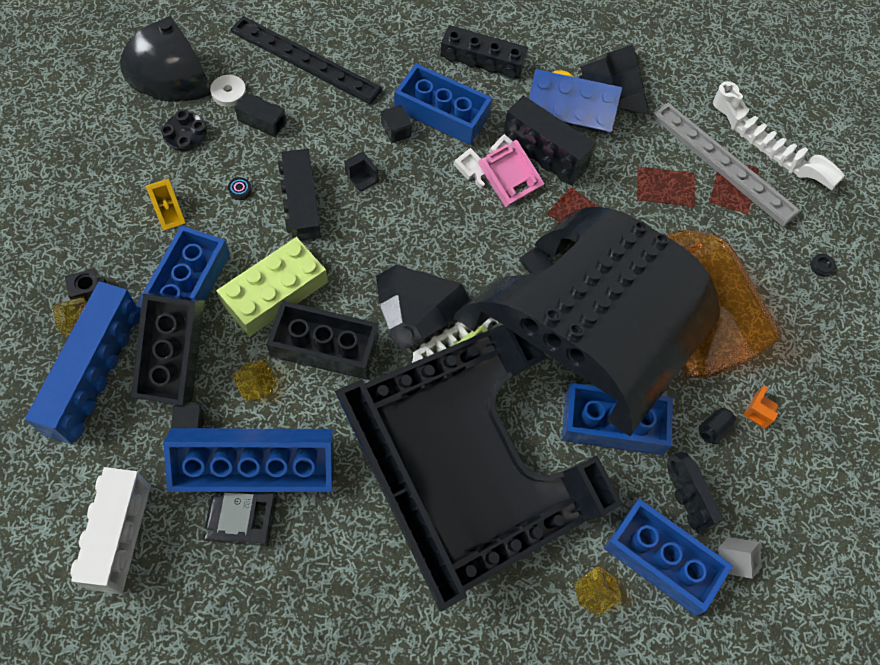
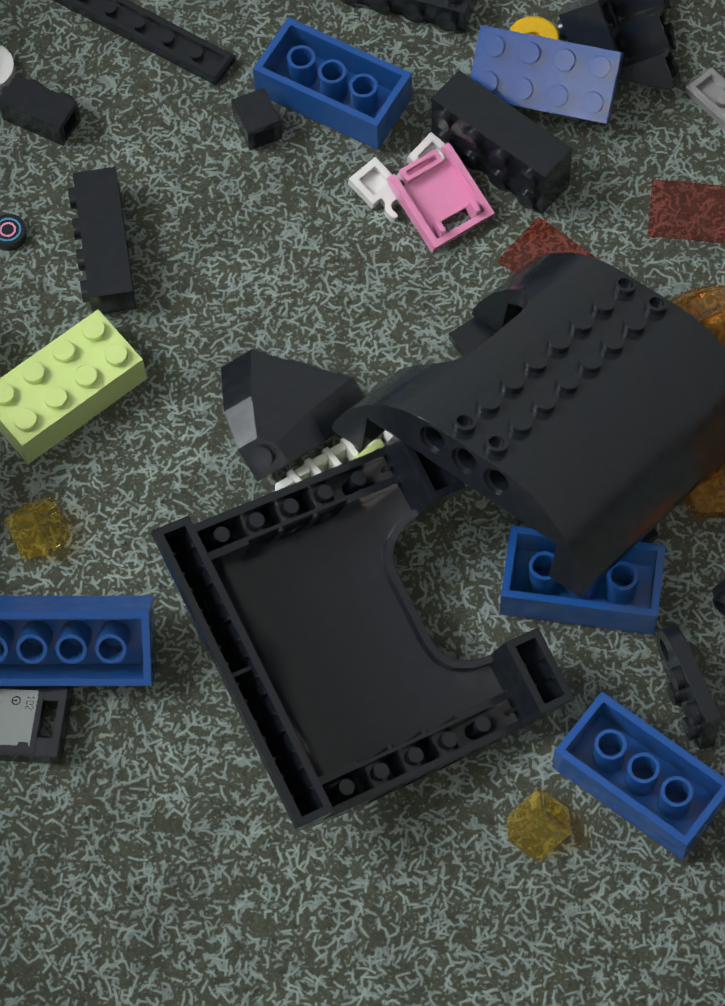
camera: 10 degrees right, 0 degrees up
(323, 339) = (140, 466): black brick -> none
(361, 171) = (200, 200): black panel -> none

